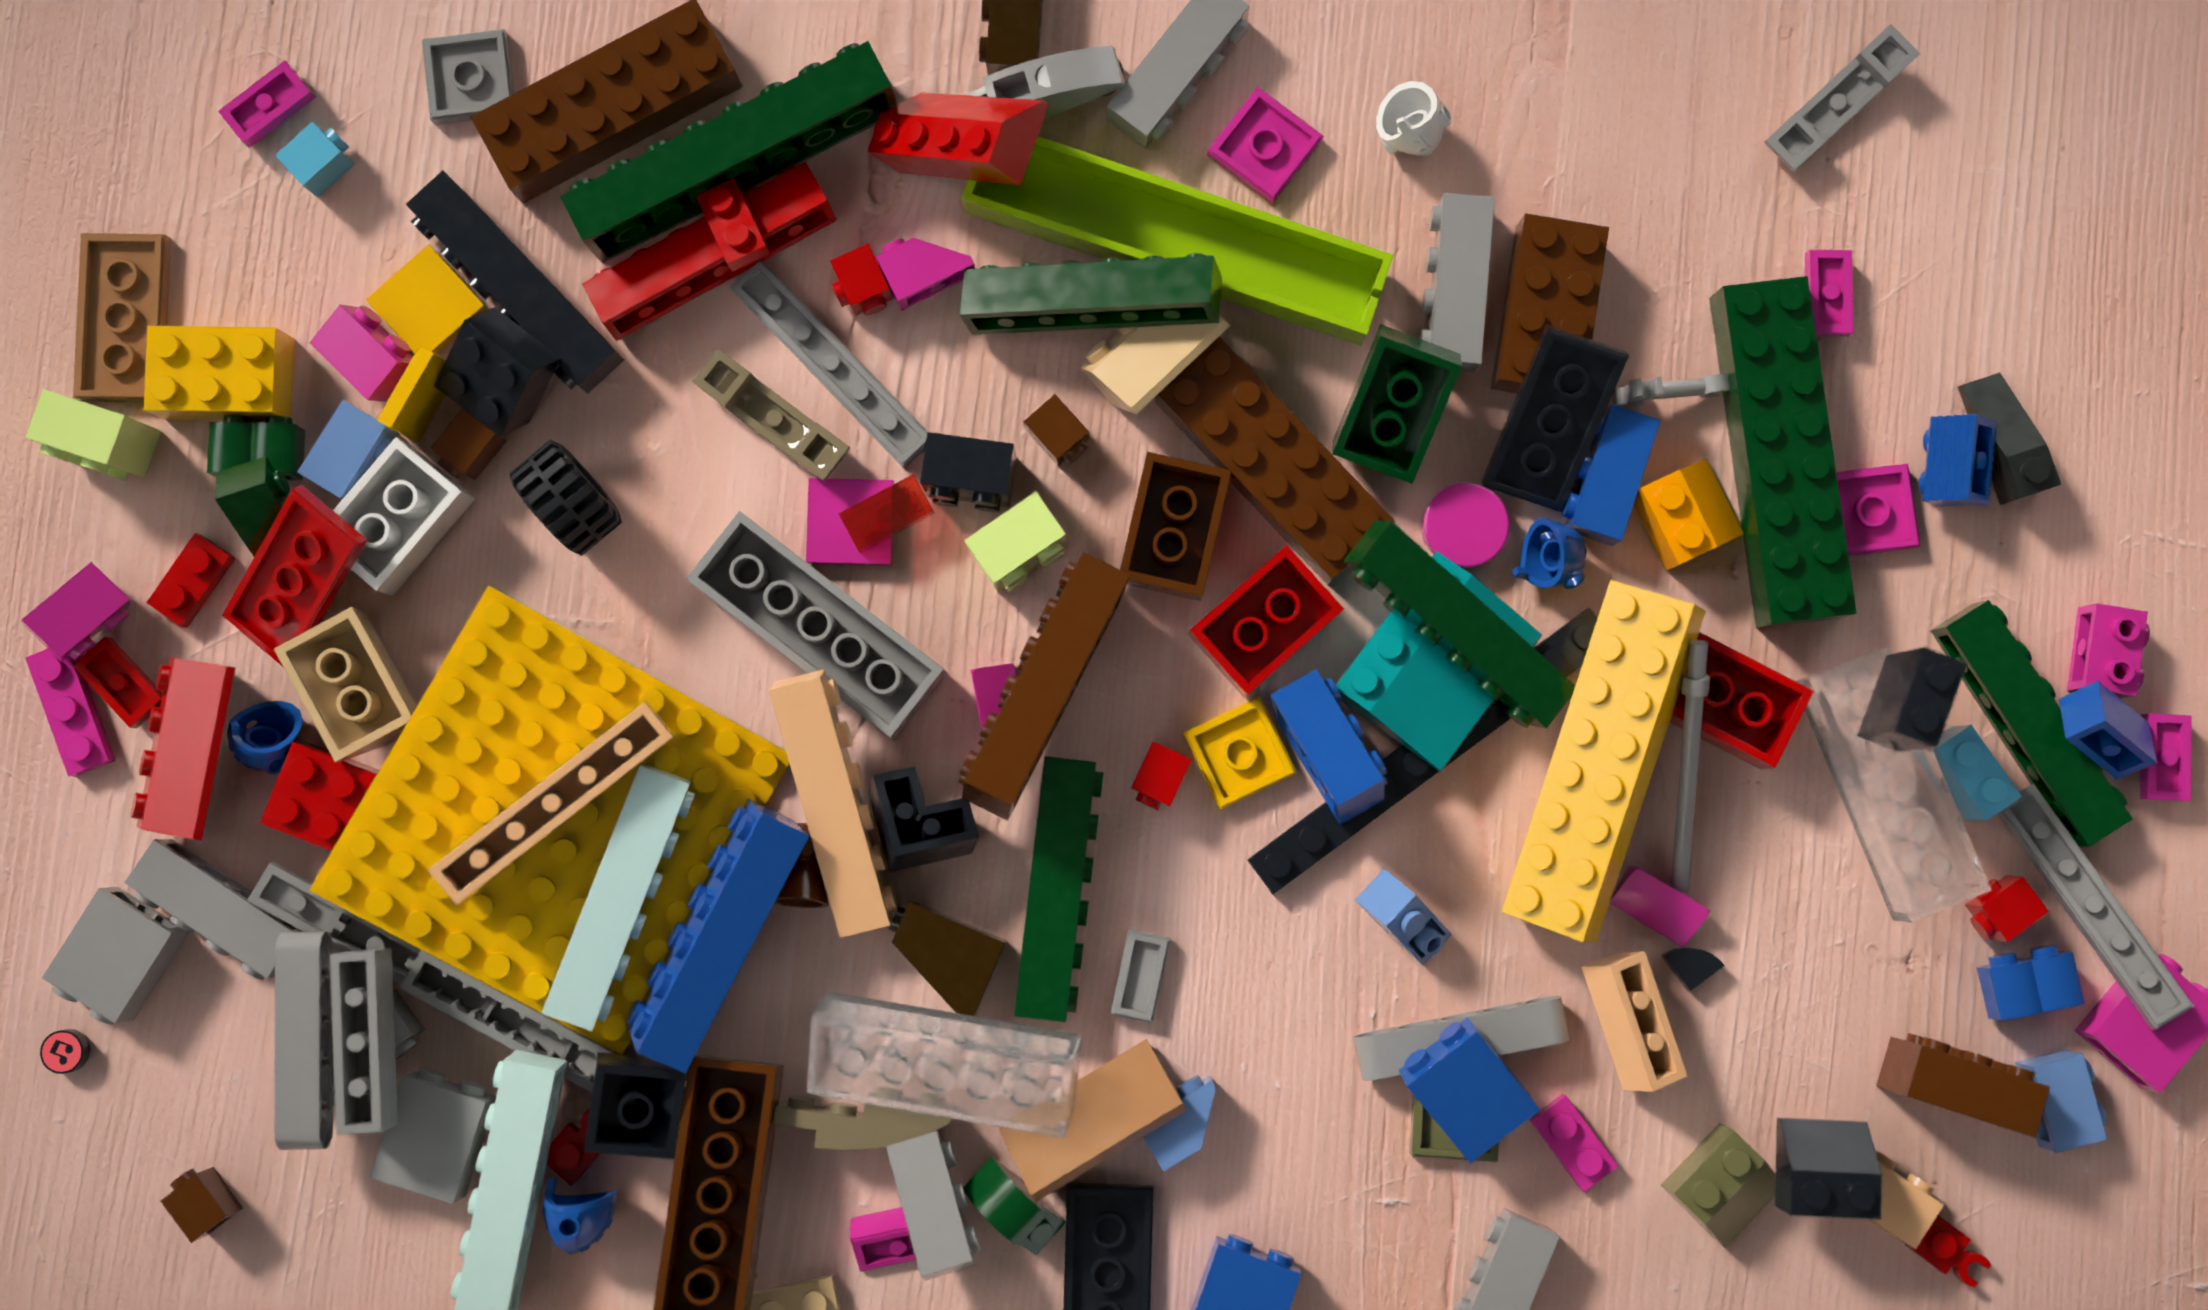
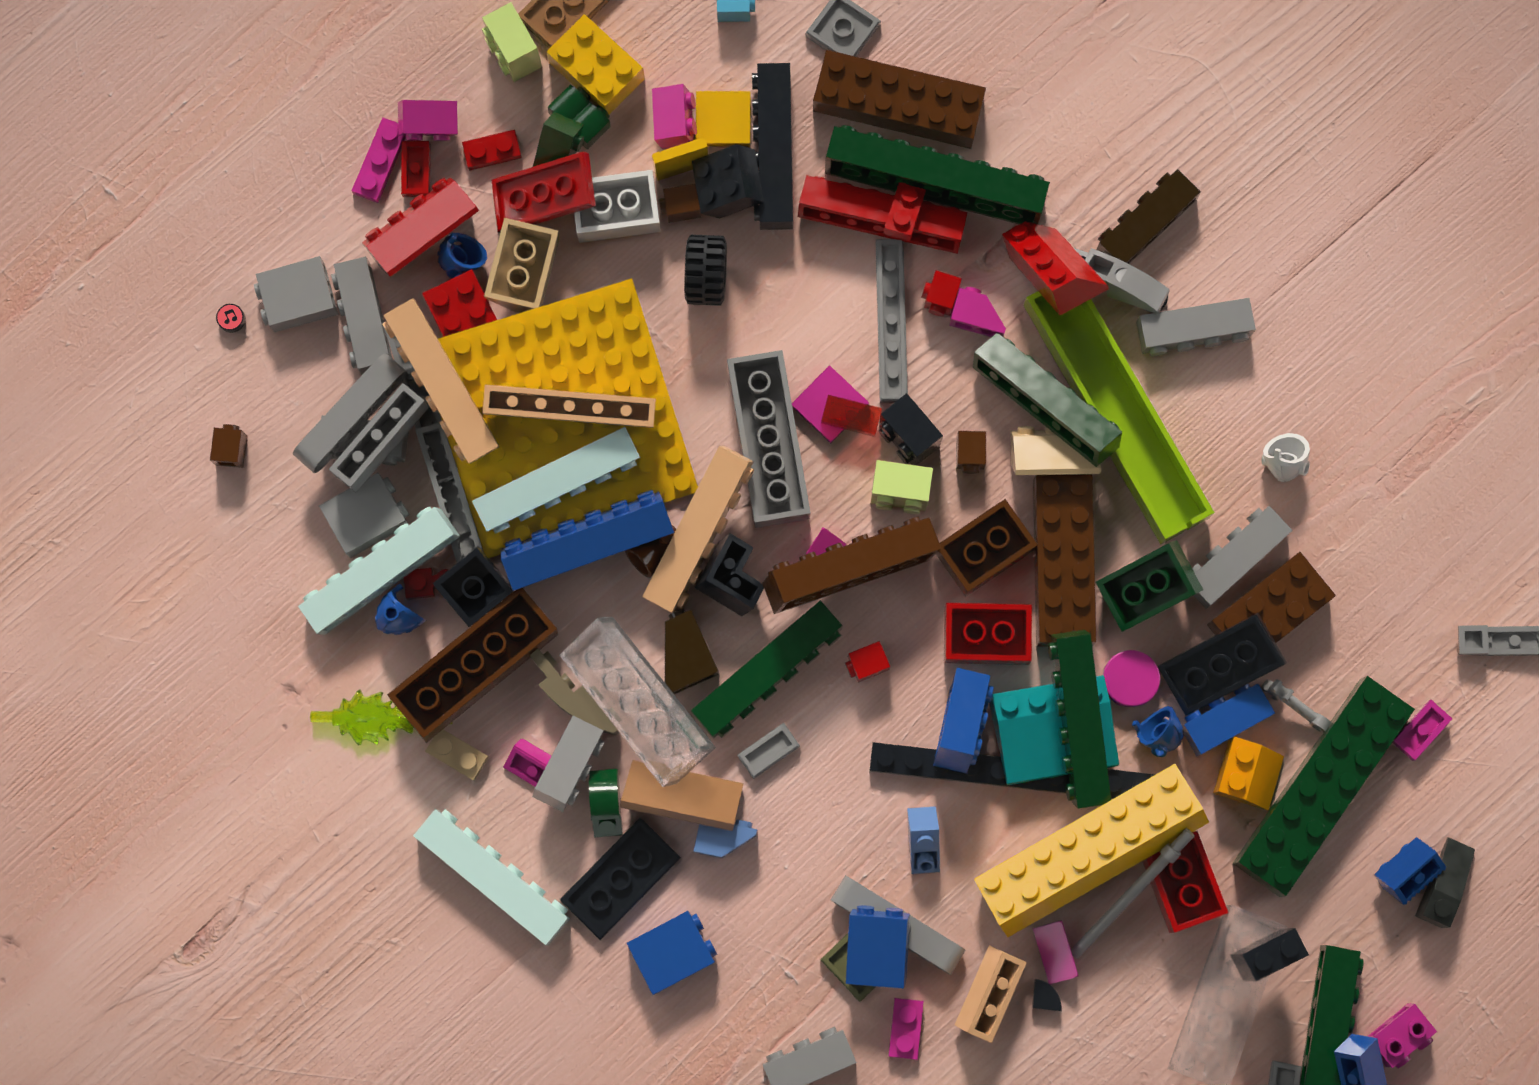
camera: 45 degrees right, 5 degrees down
(346, 449) = (622, 154): medium blue brick -> none
(372, 909) = (441, 381): none -> light nougat brick
(771, 415) = (838, 319): dark tan slope -> none
(1239, 753) = (916, 687): yellow tile -> none
(1264, 145) = (1203, 404): dark pink tile -> none
(1878, 509) = (1345, 858): dark pink tile -> none
(1973, 774) = (1272, 1030): medium azure brick -> none

